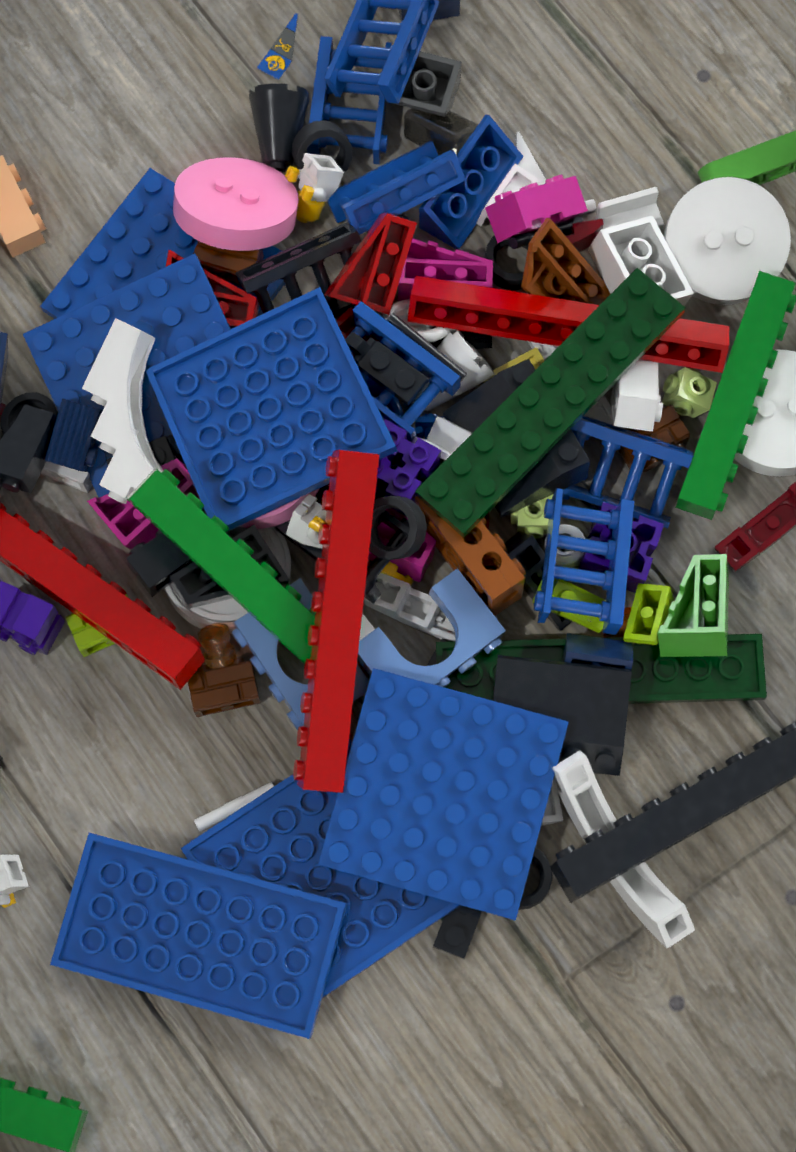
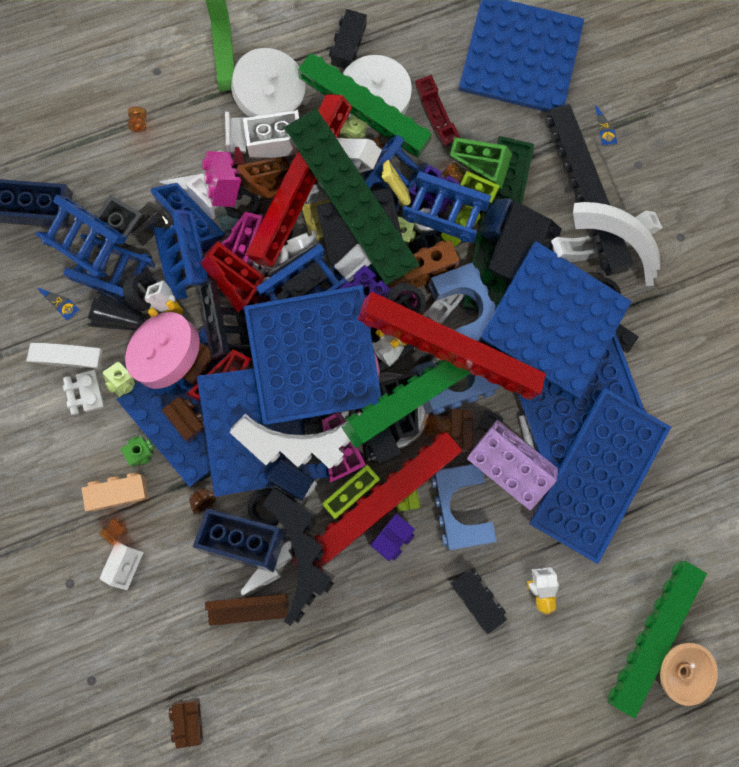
camera: 85 degrees left, 5 degrees up
(17, 323) = (201, 500): none -> reddish brown piece
(52, 719) = (457, 534): none -> medium blue arch
(75, 218) = (132, 453): none -> bright green brick
(81, 538) = (350, 491): none -> lime brick
(137, 259) = (184, 418): none -> reddish brown brick
(155, 129) = (89, 389): none -> white plate
(177, 157) = (118, 379): none -> yellowish green brick
(178, 775) = (513, 465): none -> lavender brick
(198, 78) = (64, 355): none -> white slope
(250, 738) = (488, 420): none -> black tile
(472, 243) = (228, 223): none -> clear light blue plate
(605, 472) = (393, 179): none -> light yellow plate
(607, 68) = (137, 119): none -> clear orange wheel
(635, 870) = (626, 226): none -> white arch
(668, 572) = (454, 172): none -> clear orange wheel

